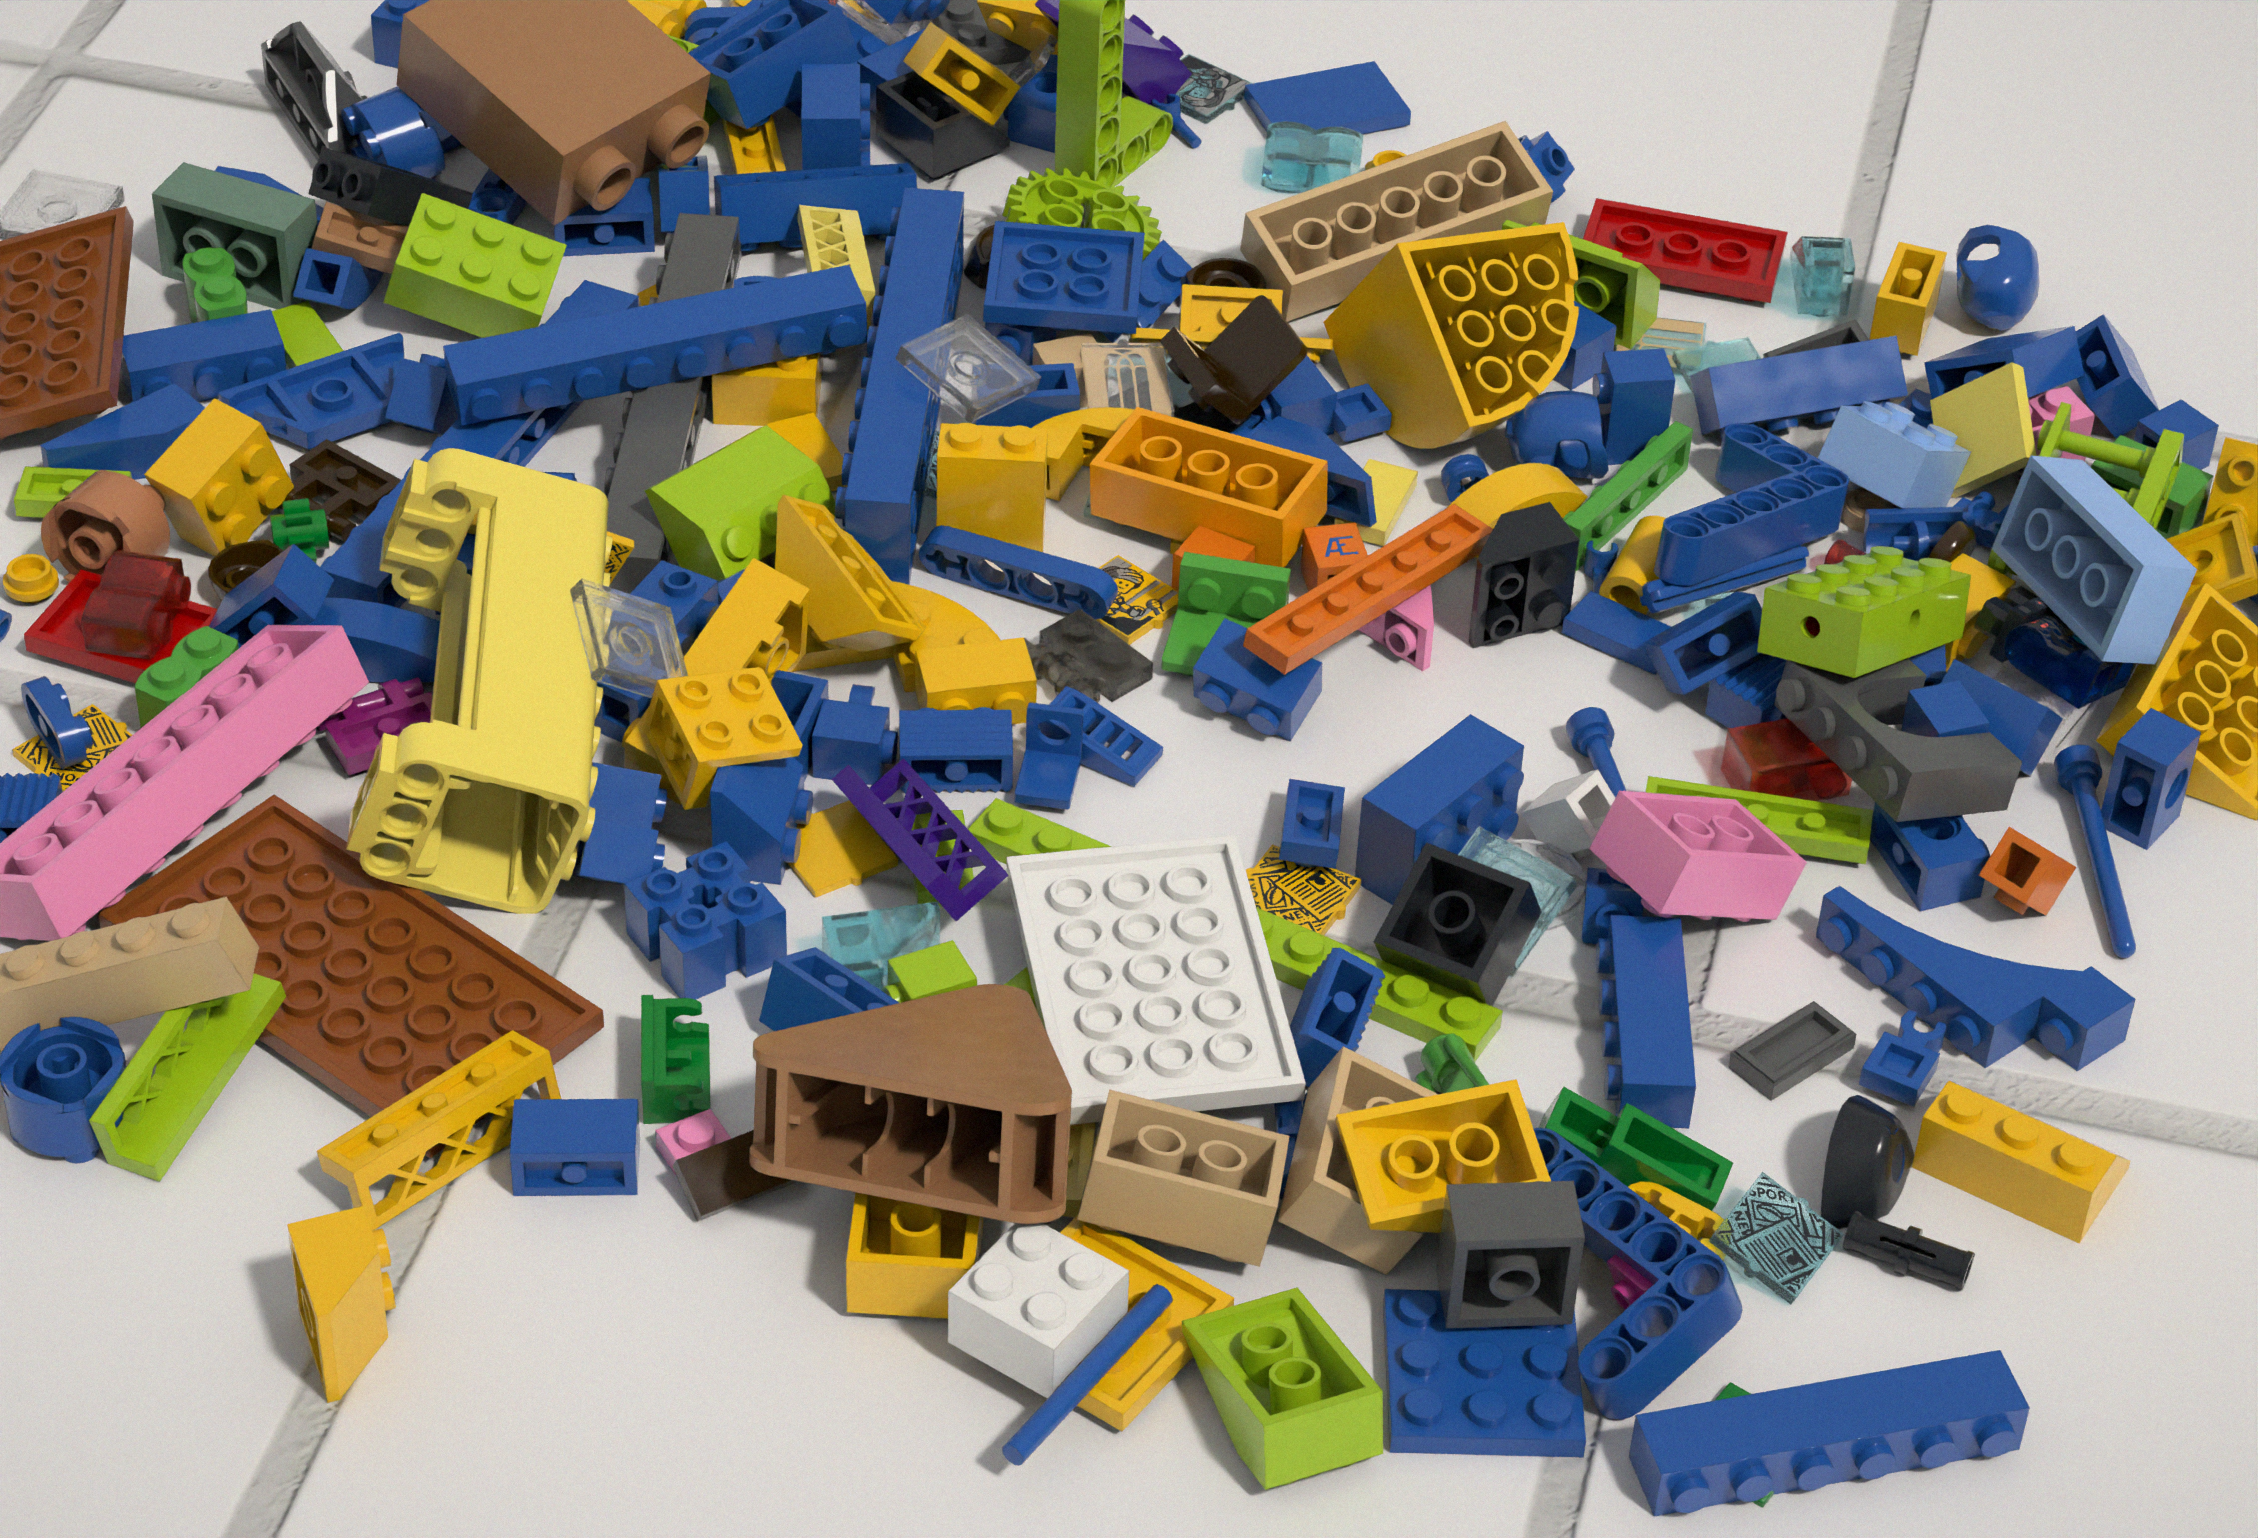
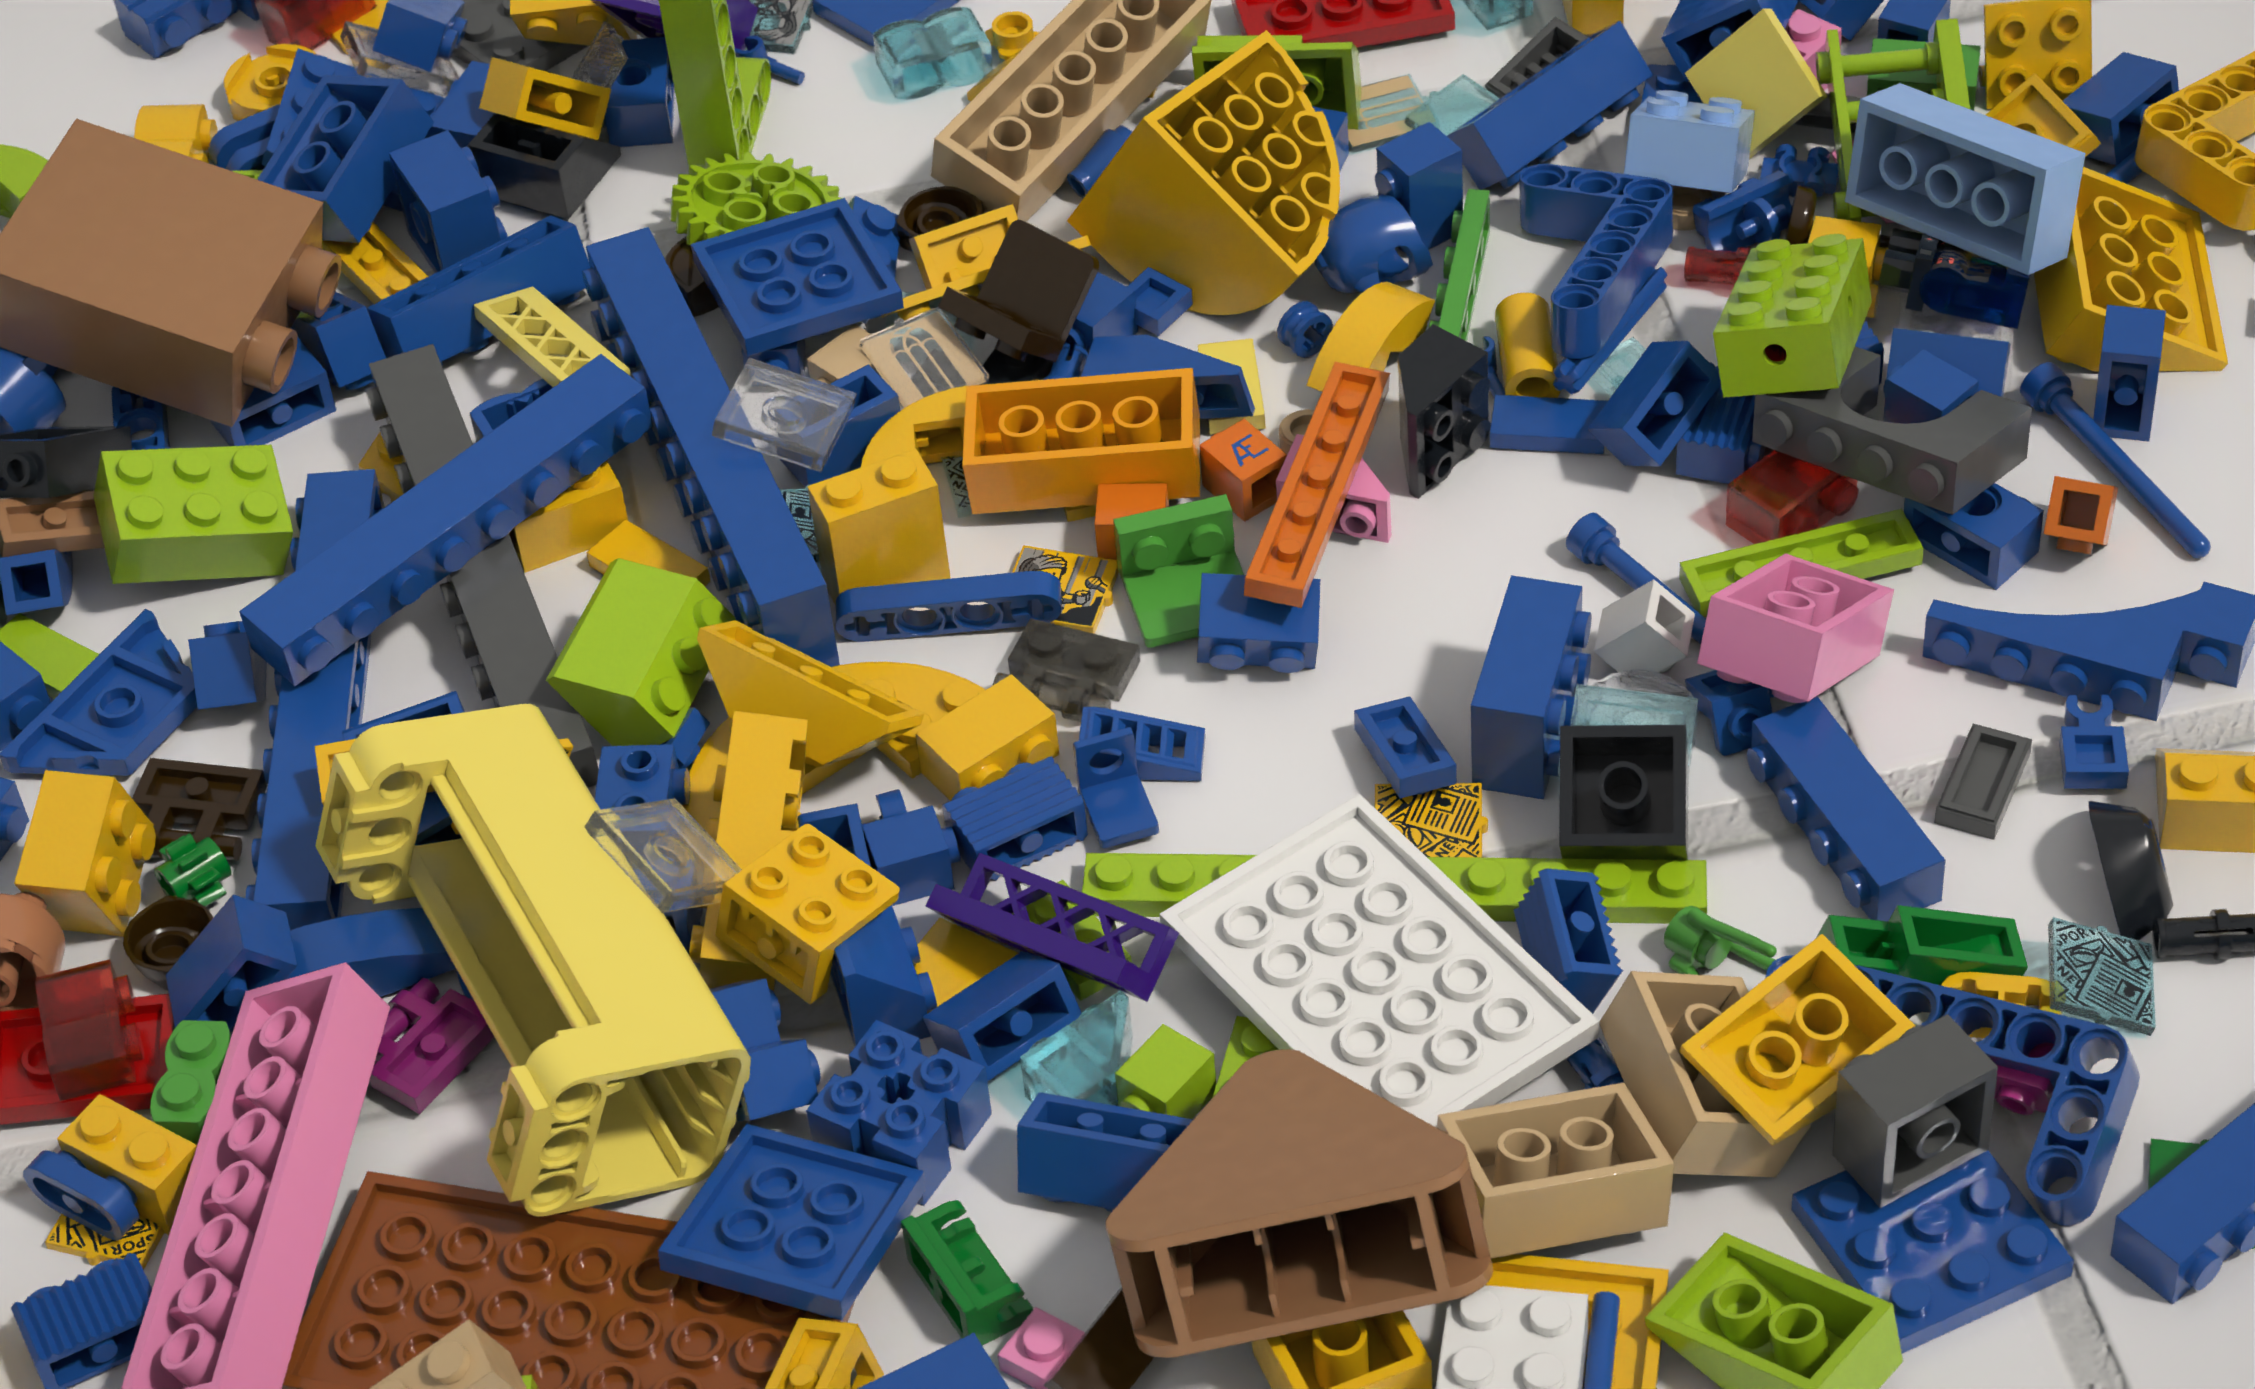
camera: 20 degrees left, 5 degrees up
(106, 702) = (135, 1150): none -> yellow brick
(558, 960) = (792, 1221): none -> blue plate
(834, 883) = (1005, 1013): none -> blue brick

